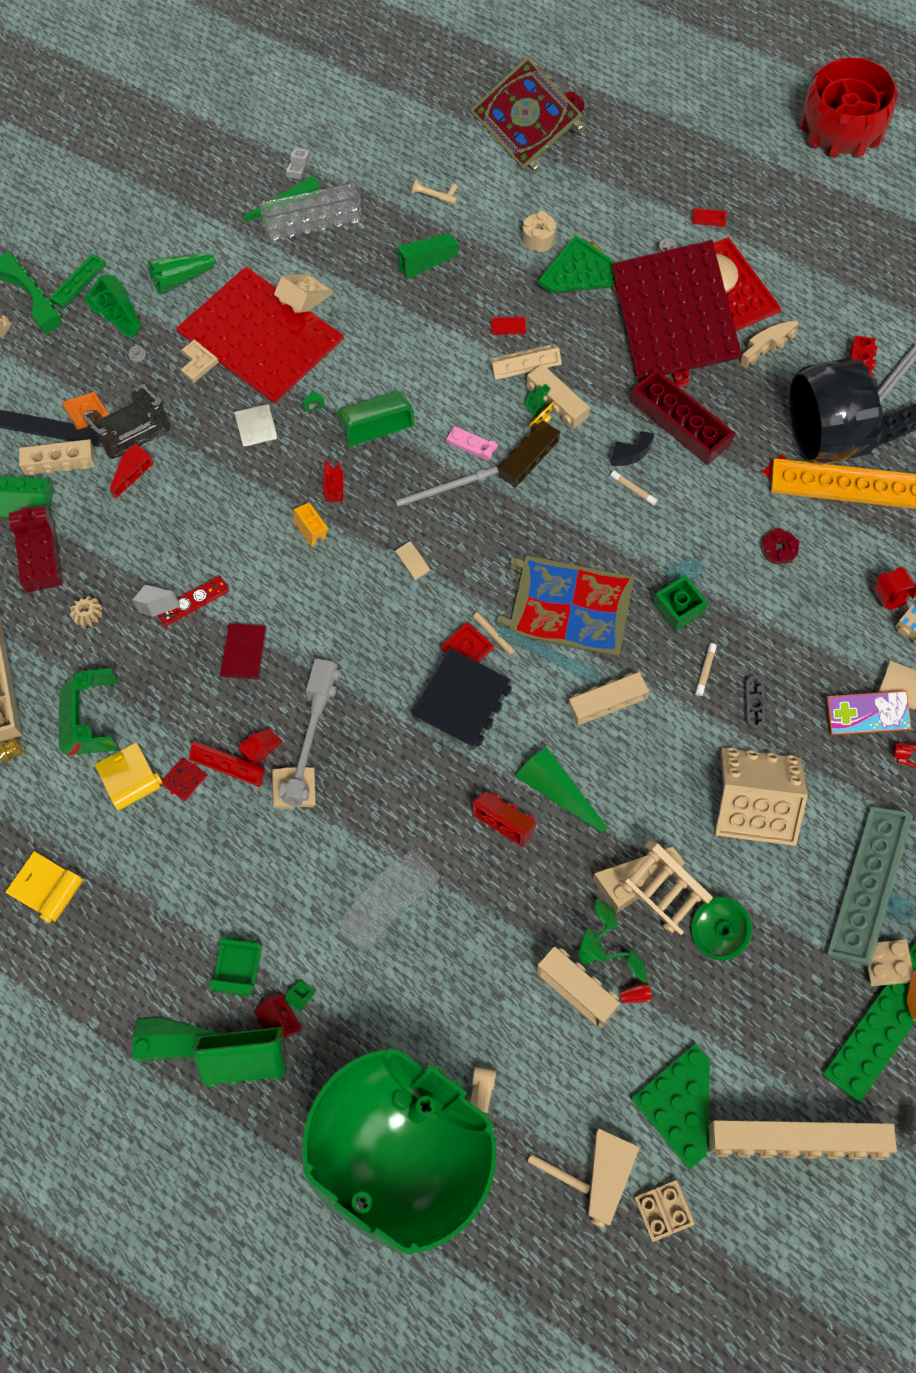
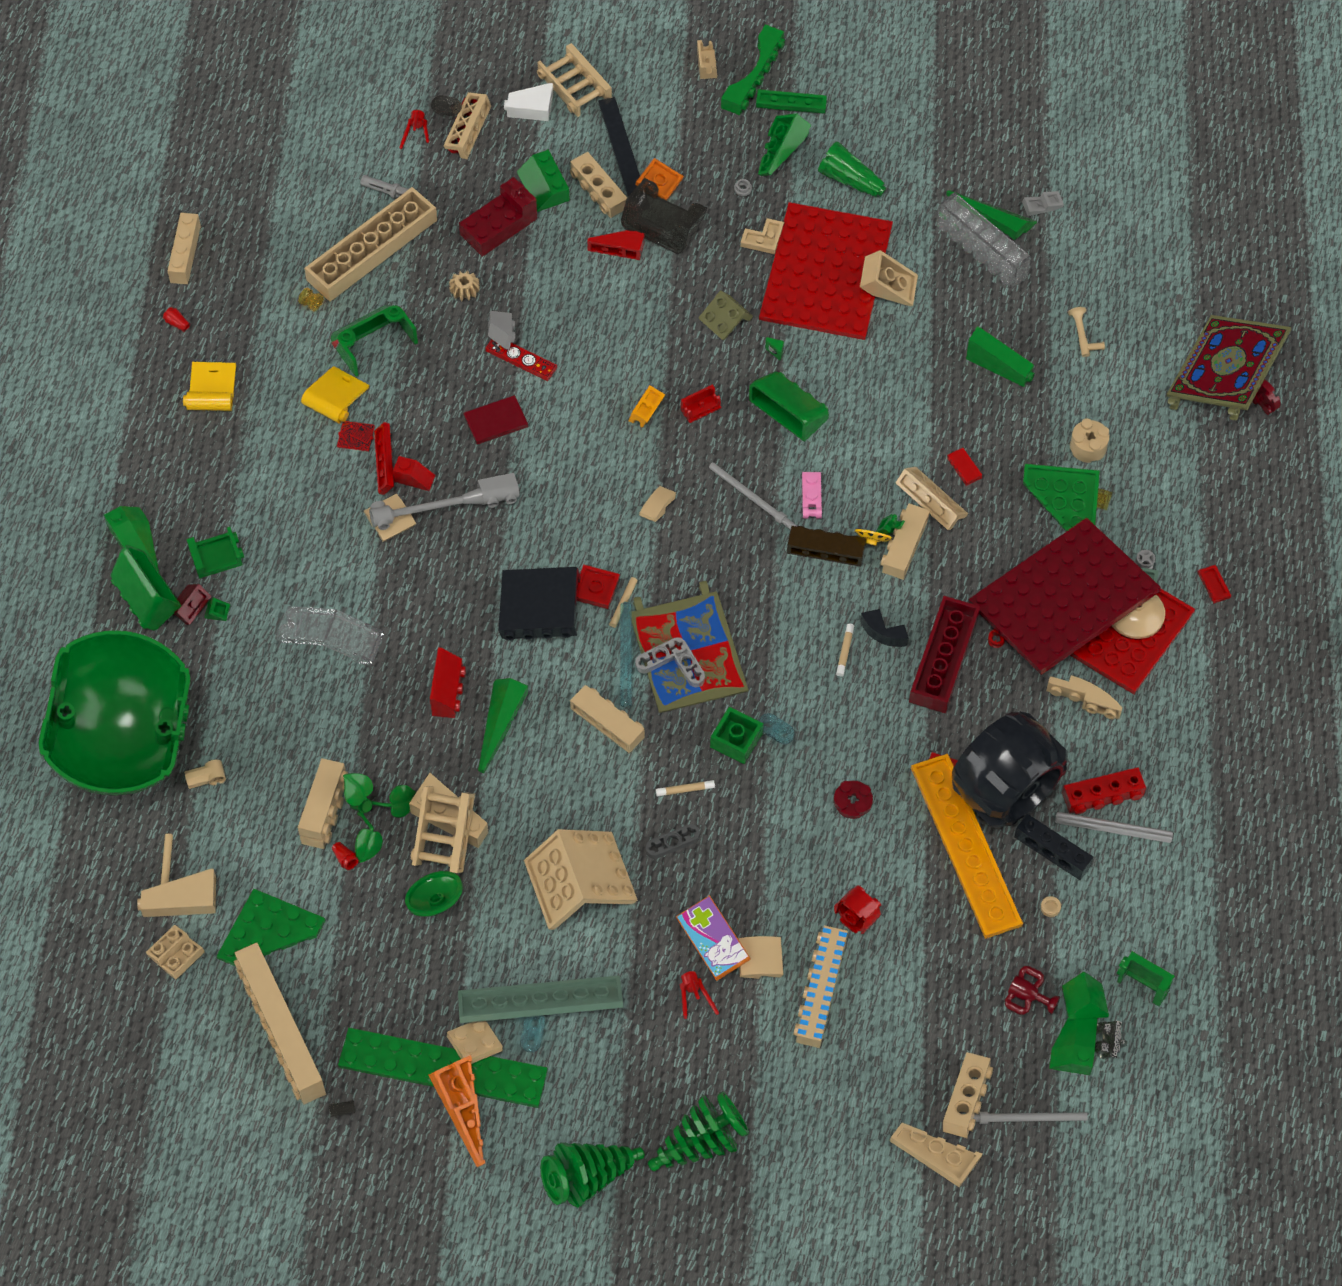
camera: 60 degrees right, 5 degrees down
(575, 614) = (677, 656): none -> light grey beam

